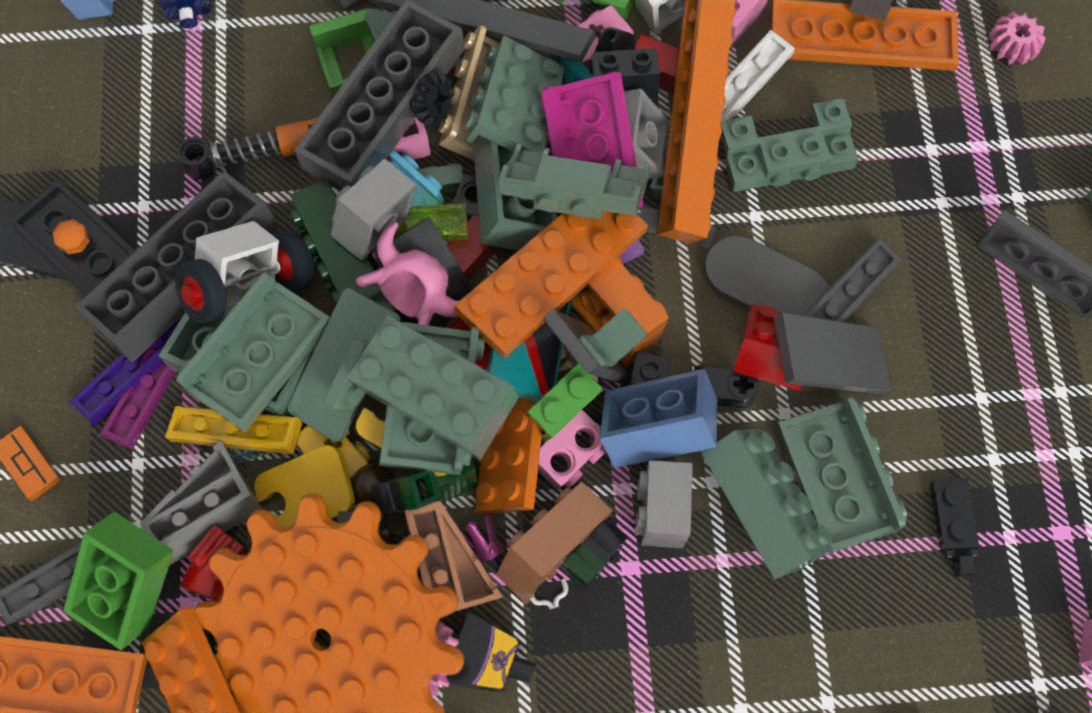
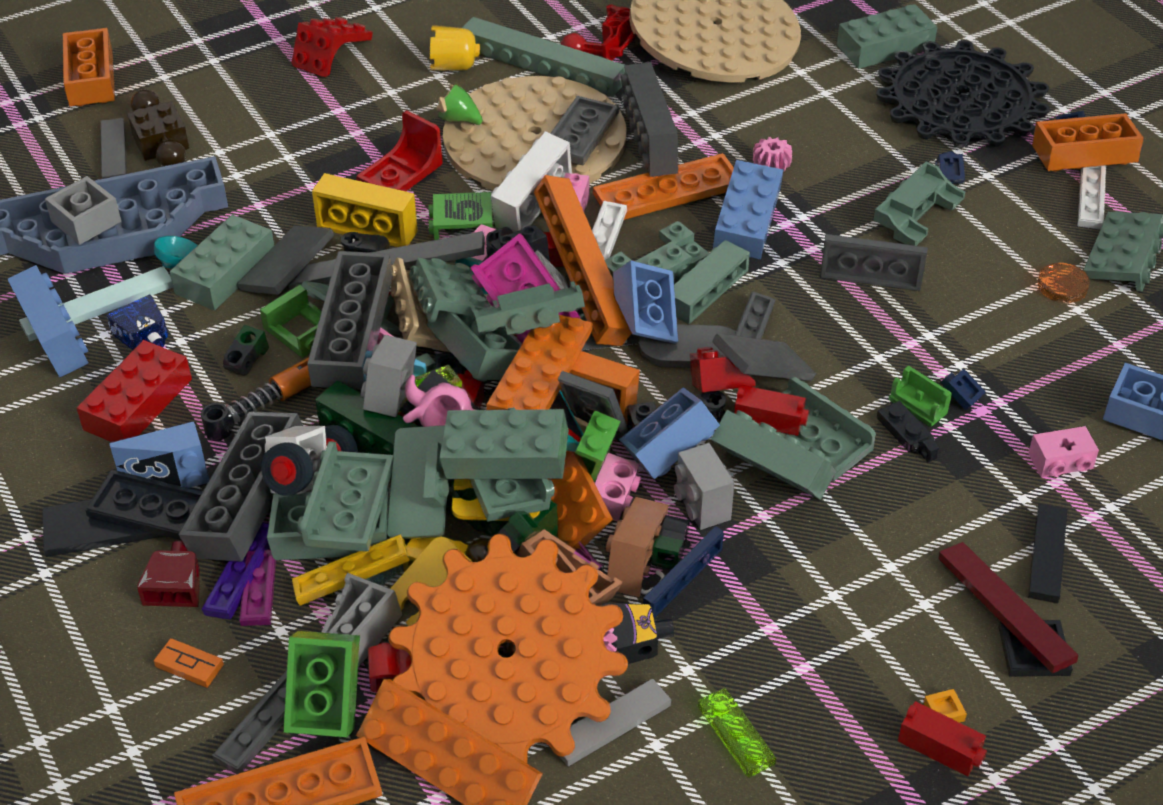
camera: 25 degrees left, 25 degrees down
(56, 348) = (171, 578): none -> dark red torso
(70, 236) = (146, 497): orange tile -> none
(119, 191) = (164, 456): none -> medium blue slope
(132, 82) = (134, 393): none -> red brick
(213, 541) = (380, 647): red piece -> none
(272, 73) = (245, 350): none -> leg
(425, 91) = (391, 302): black gear -> none
(584, 605) = (685, 571): none -> dark blue tile
(614, 339) = (616, 376): sand green bracket -> none
(737, 212) = (647, 300): none -> medium blue slope
(800, 433) = (776, 409): none -> red brick
(833, 198) = (709, 280): none -> sand green brick
(939, 114) = (749, 207): none -> medium blue brick
(995, 486) = (921, 396): none -> bright green hinge
(1052, 496) = (963, 388): none -> dark blue bracket

